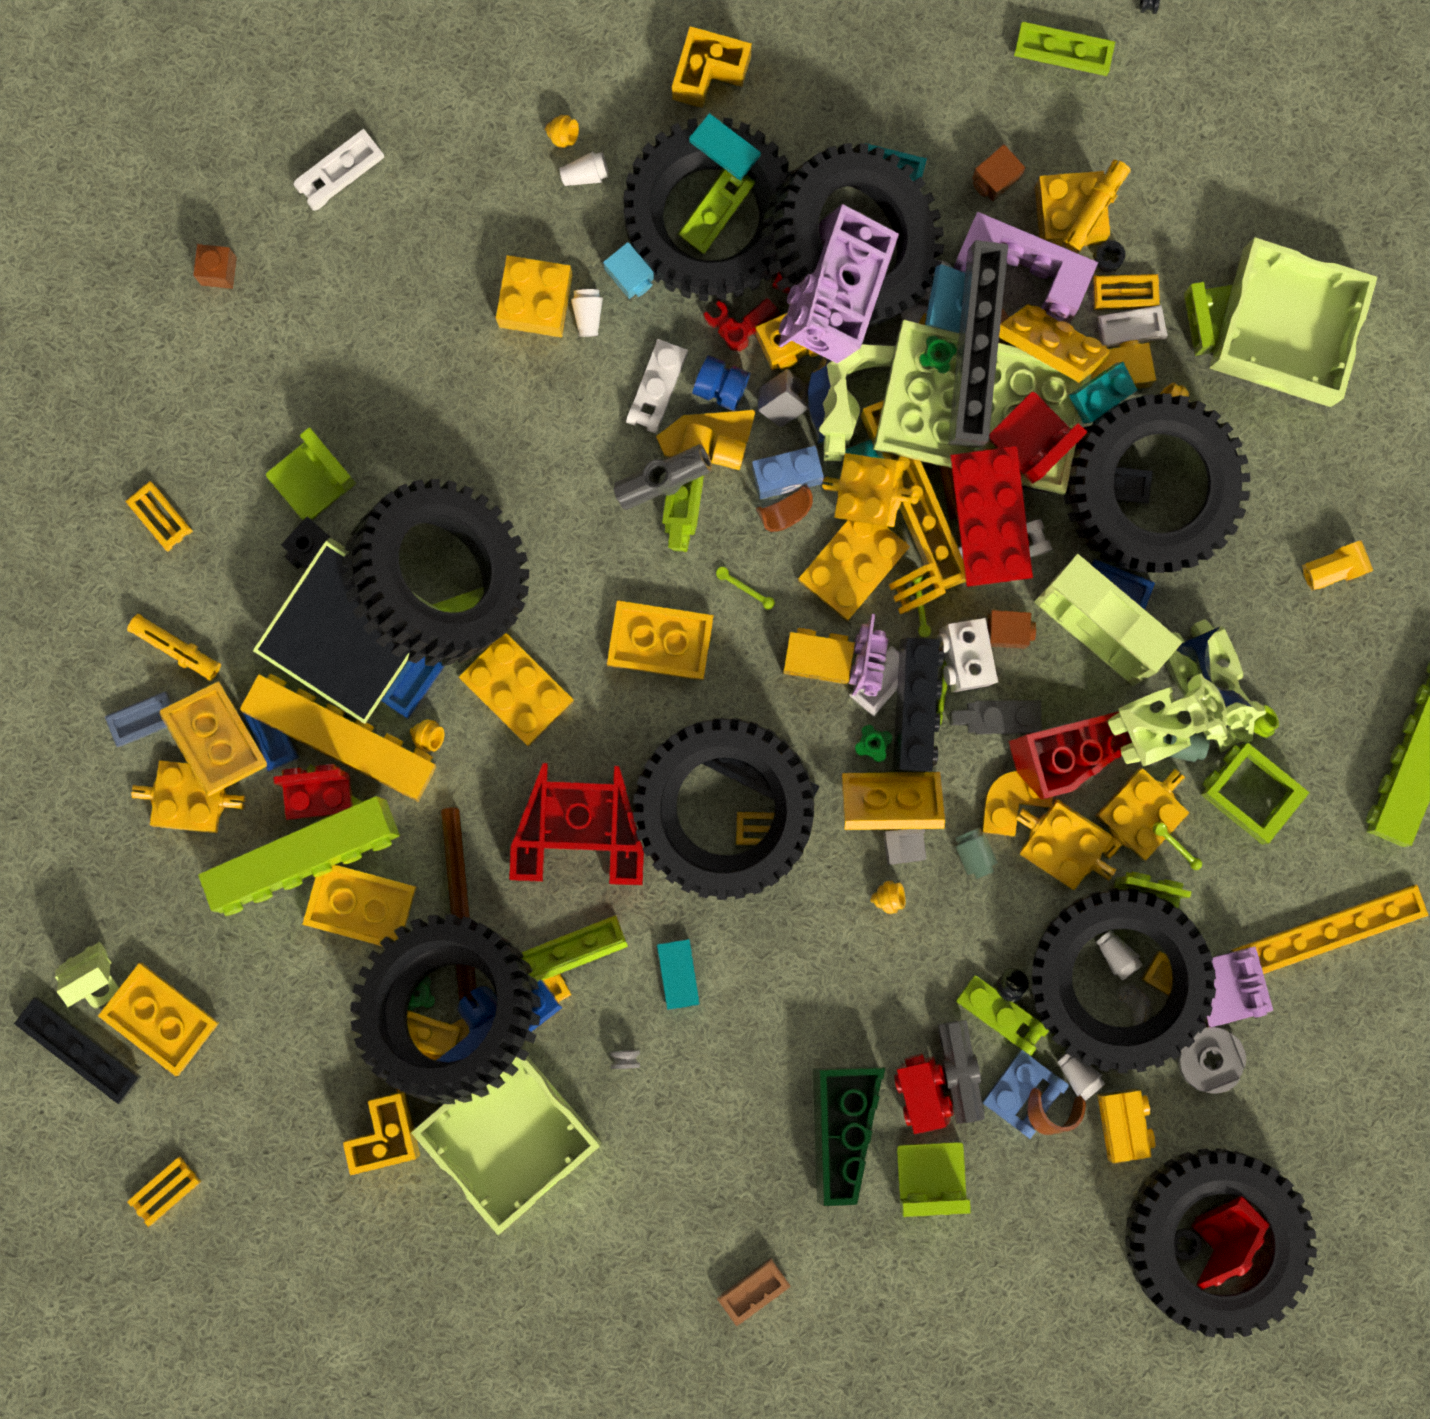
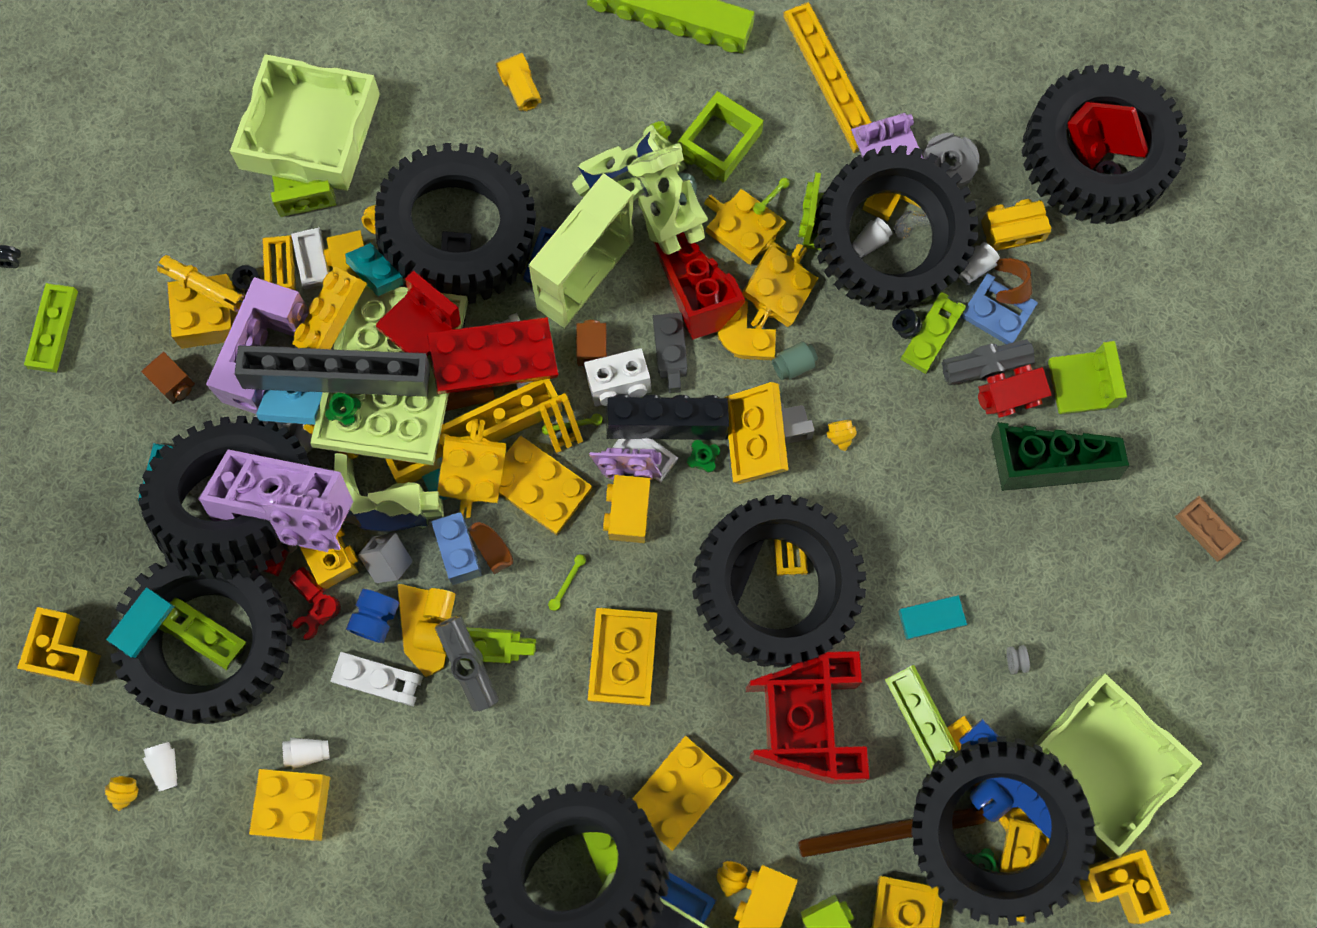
camera: 95 degrees left, 10 degrees down
(629, 271) = (264, 712): medium azure brick -> none

